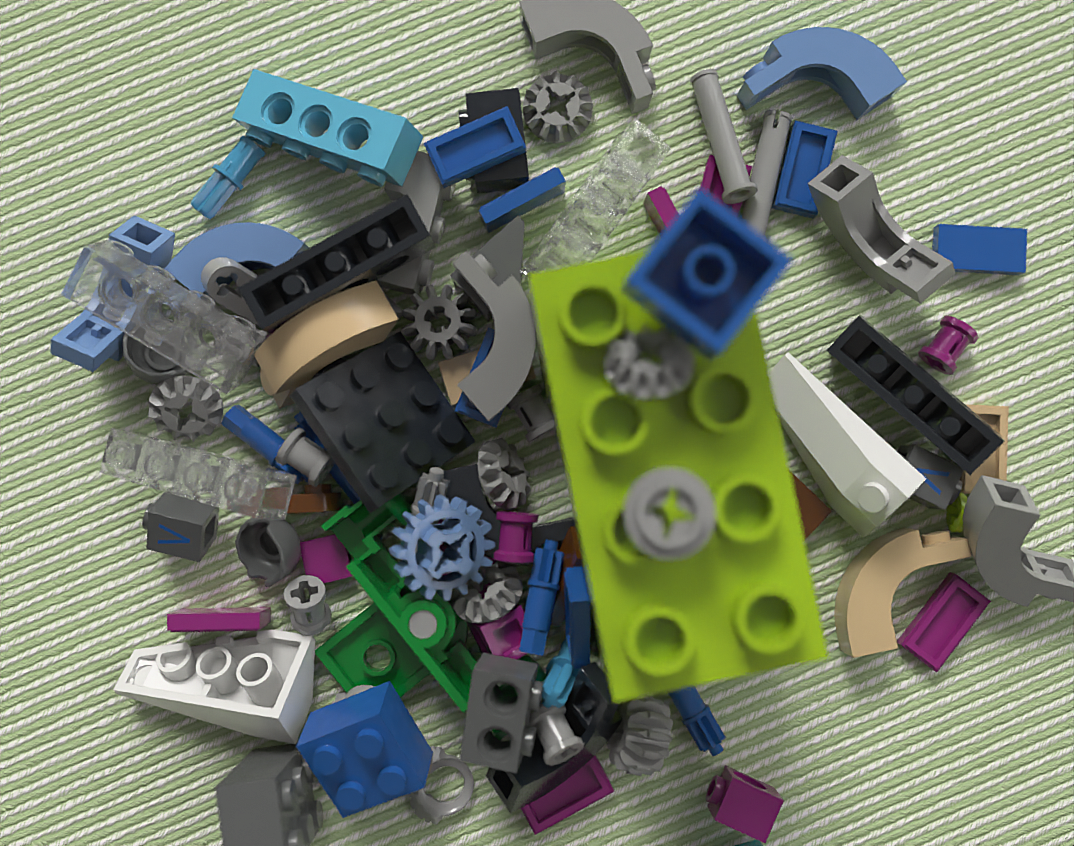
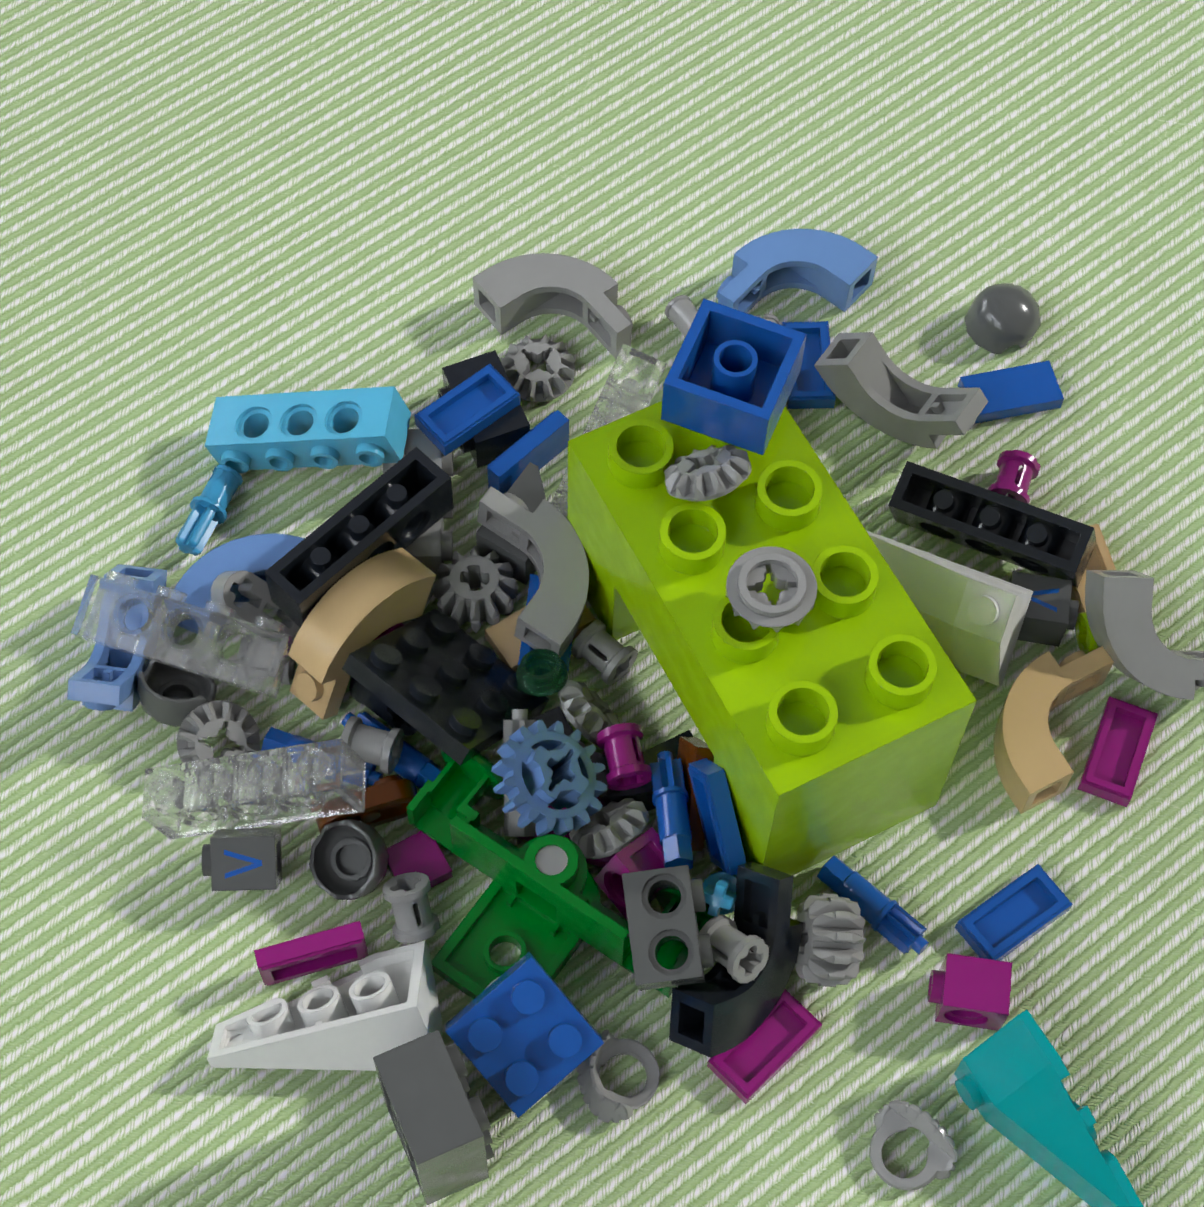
camera: 15 degrees left, 25 degrees down
(463, 420) = (541, 673): none -> clear green plate
(802, 740) = (1013, 915): none -> blue tile
(1000, 170) = (1002, 317): none -> dark grey hair

